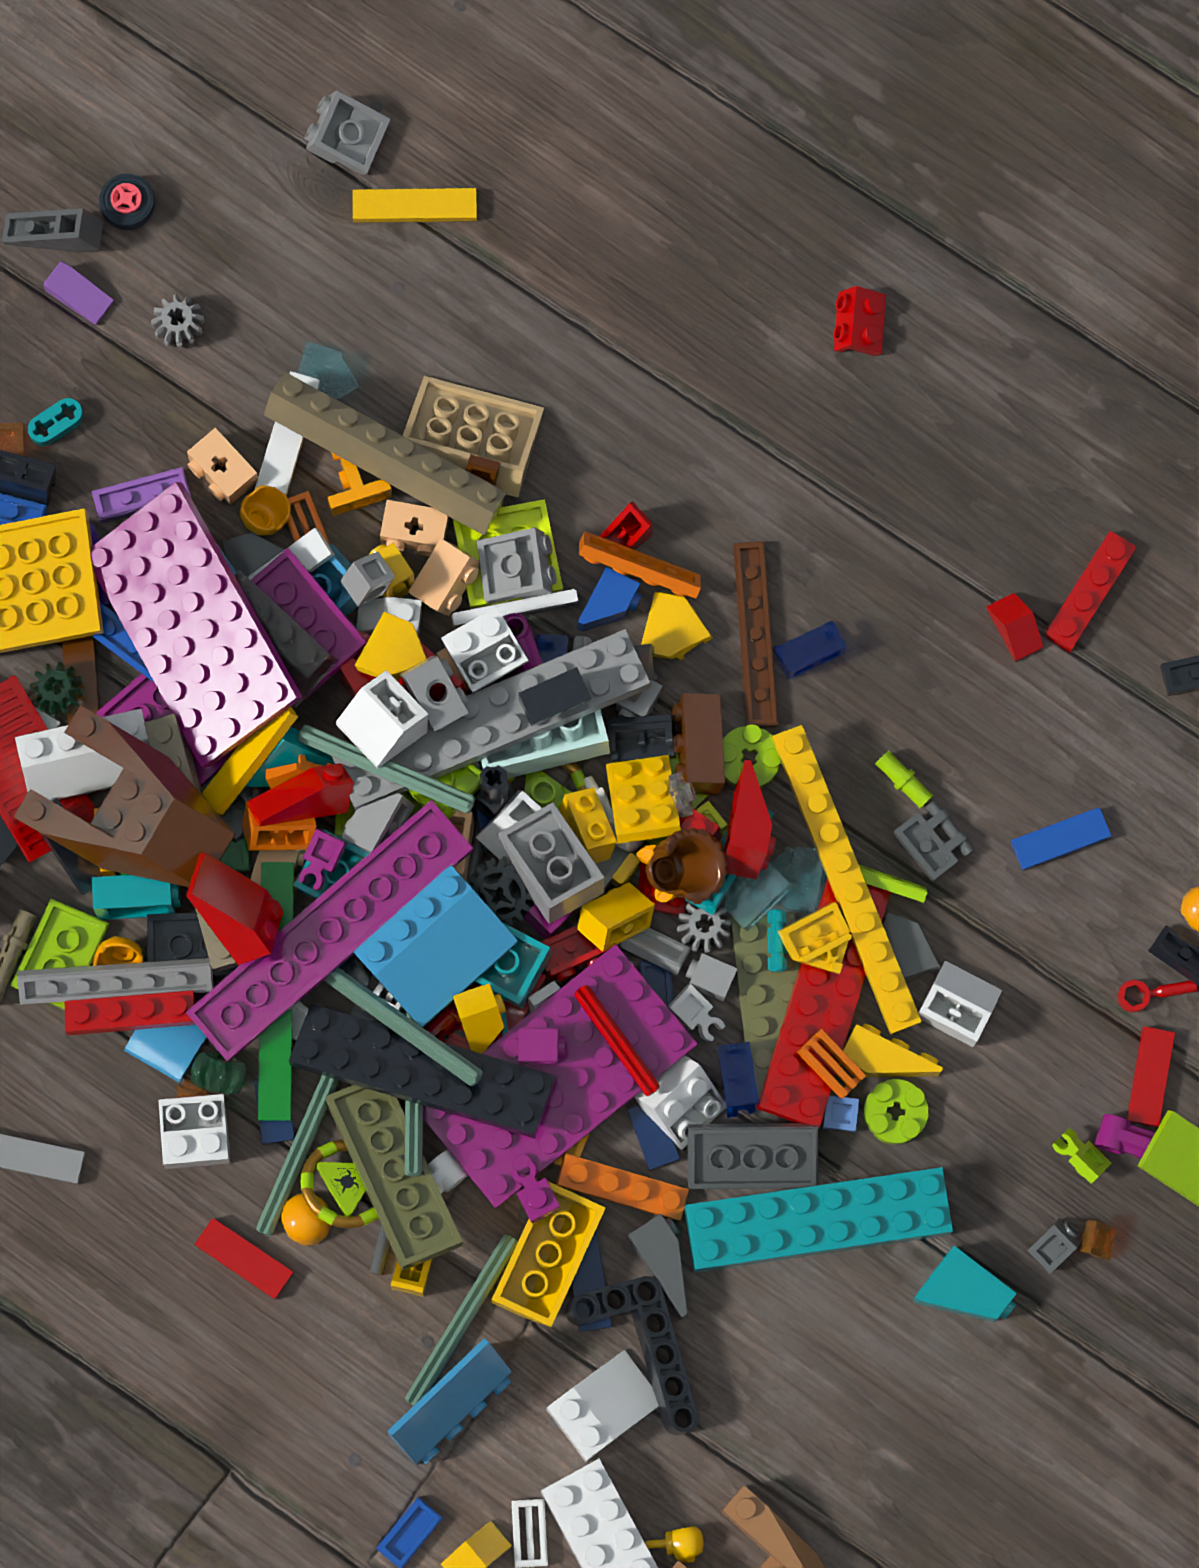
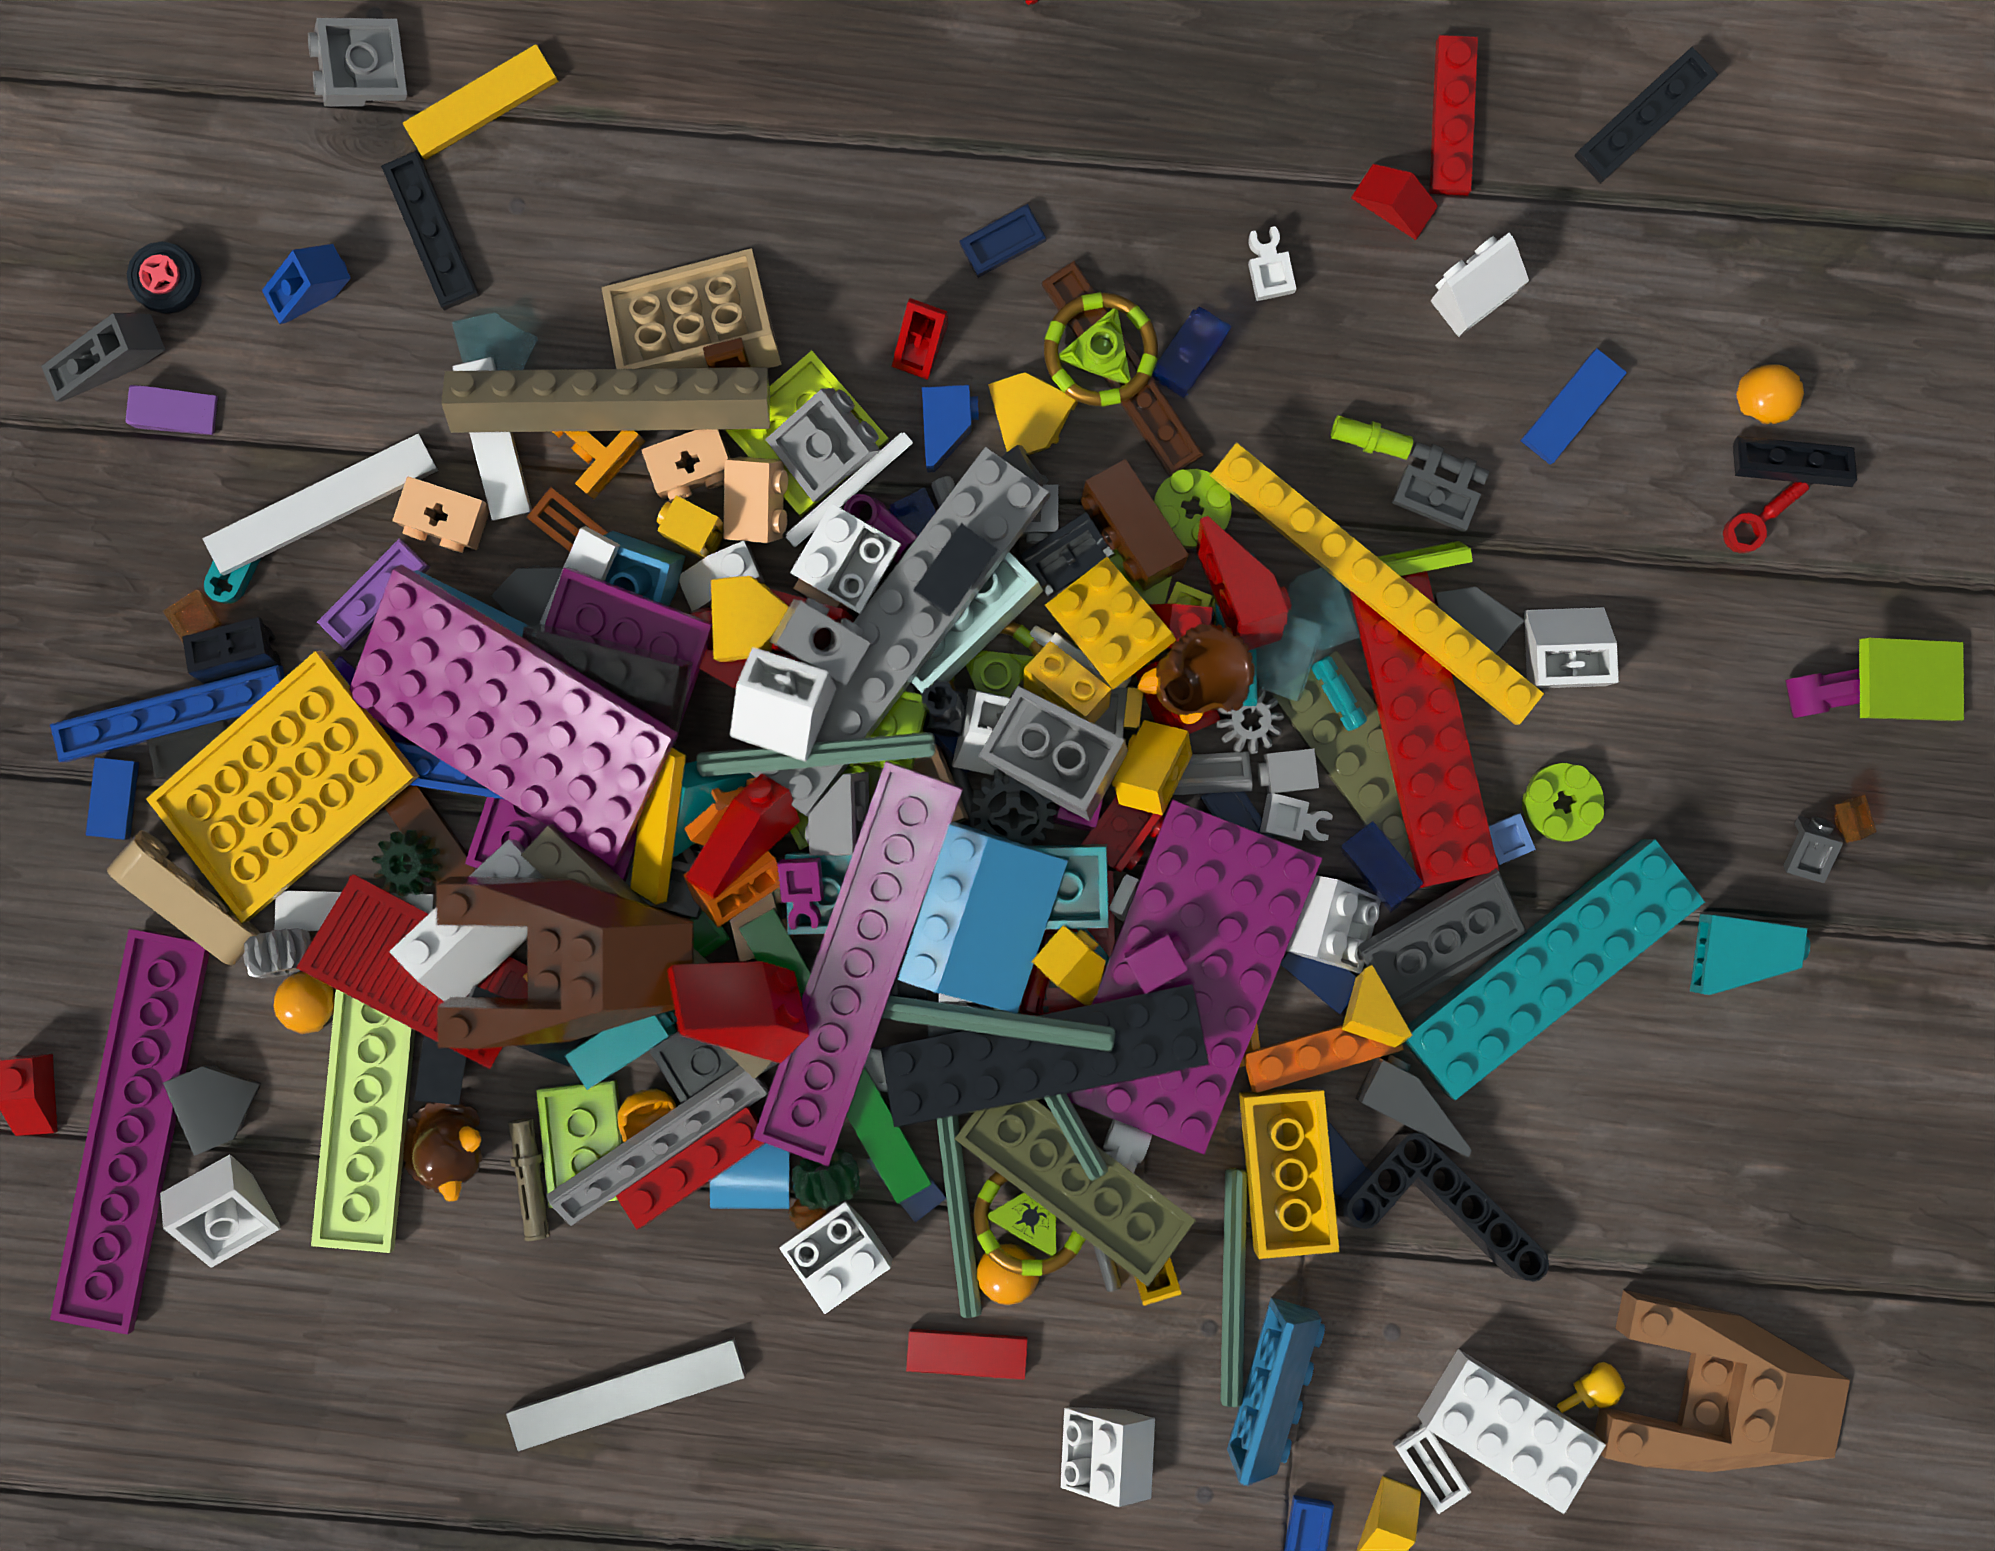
camera: 20 degrees left, 10 degrees up
(142, 413) = (319, 505): none -> white tile
(179, 332) = (287, 370): light grey gear -> none
(222, 258) = (305, 281): none -> blue slope
(265, 510) = (516, 536): light orange hair -> none
(303, 1385) = (1108, 1454): none -> white slope
(328, 272) = (430, 230): none -> black tile
(367, 578) = (671, 553): light grey brick -> none
(537, 1196) = (1246, 1123): magenta plate -> none
(604, 1405) = (1435, 1294): white slope -> none
(617, 1040) = (1236, 906): red axle -> none
(648, 568) = (944, 366): orange plate -> none
(672, 1176) = (1373, 1012): none -> yellow slope
(682, 794) = (1152, 595): clear plate -> none
(722, 500) = (1002, 240): none -> dark blue tile
(747, 611) = (1100, 349): none -> lime piece
(818, 939) = (1385, 667): yellow slope -> none
(835, 1050) = (1507, 804): orange tile -> none
(887, 1058) = (1514, 756): yellow slope -> none
(898, 625) = (1271, 271): none -> white plate
(1039, 715) = (1482, 285): none -> white slope
(1085, 1157) = (1792, 736): lime plate -> none
(1150, 1076) = (1810, 610): red tile -> none

